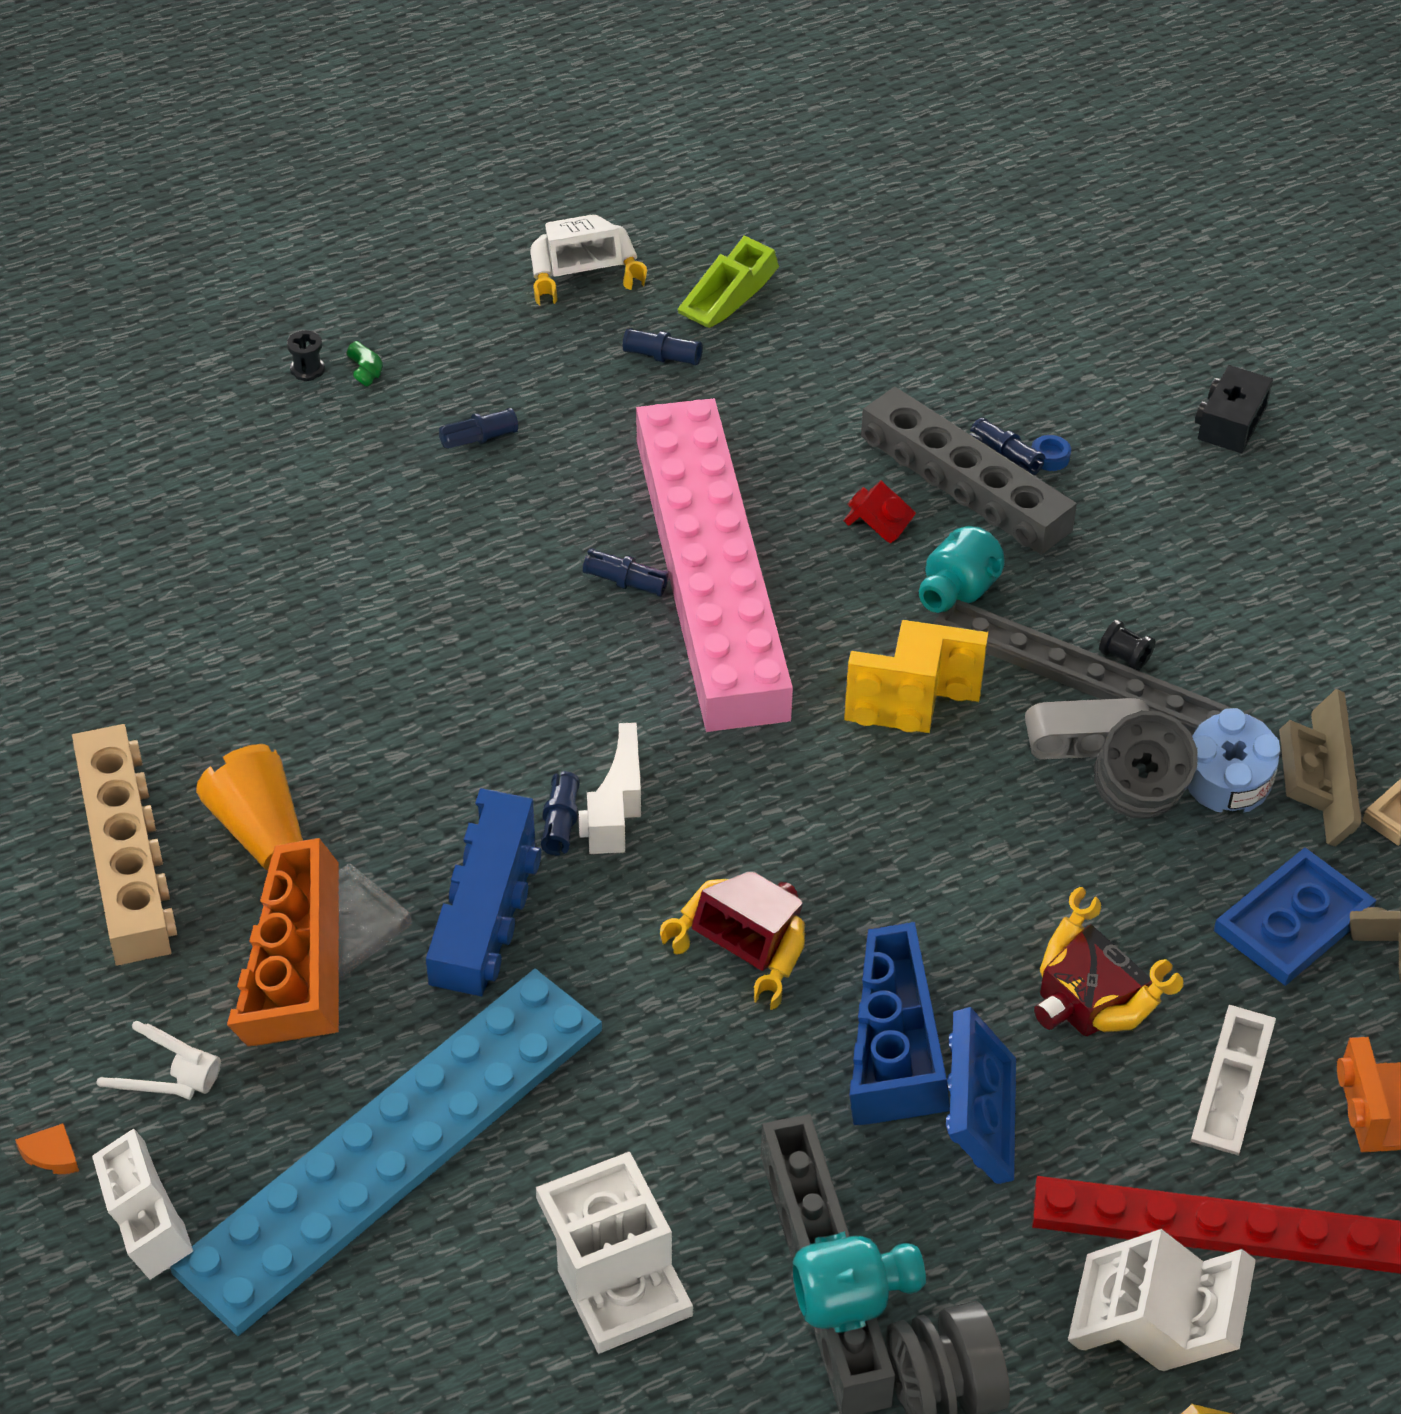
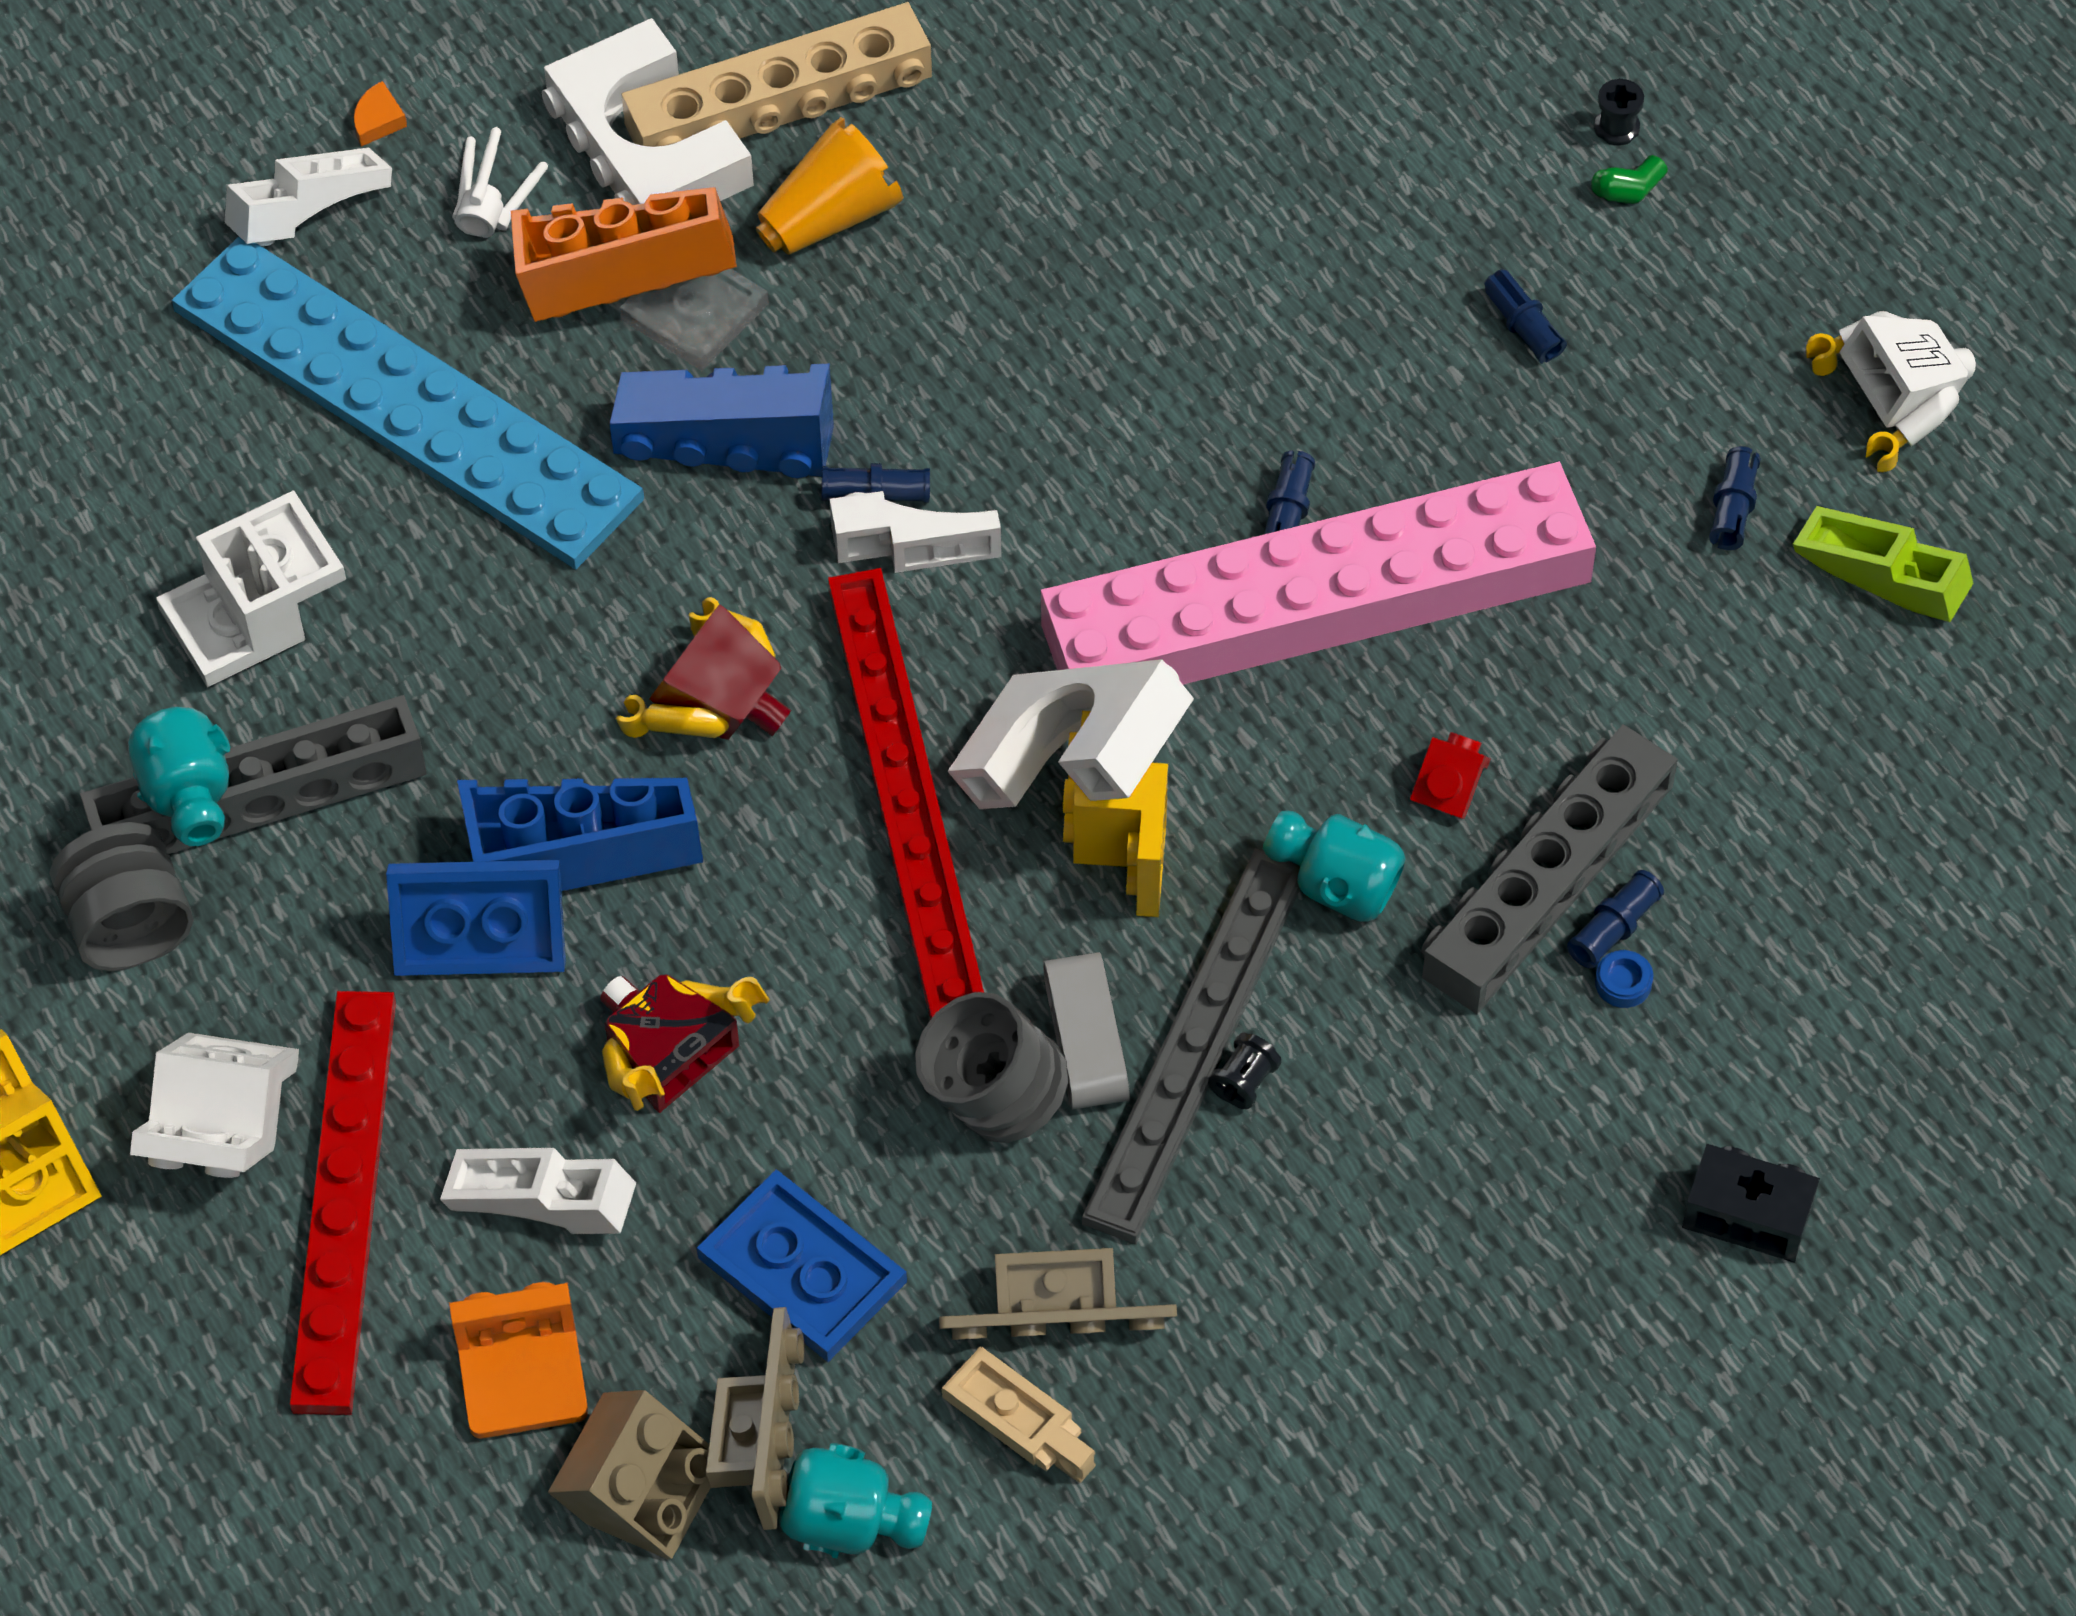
camera: 85 degrees right, 10 degrees up
(97, 978) = (588, 98): none -> white arch
(812, 714) = (1128, 724): none -> white arch
(875, 817) = (905, 788): none -> red plate
(1234, 762) = (1028, 1179): light blue brick -> none

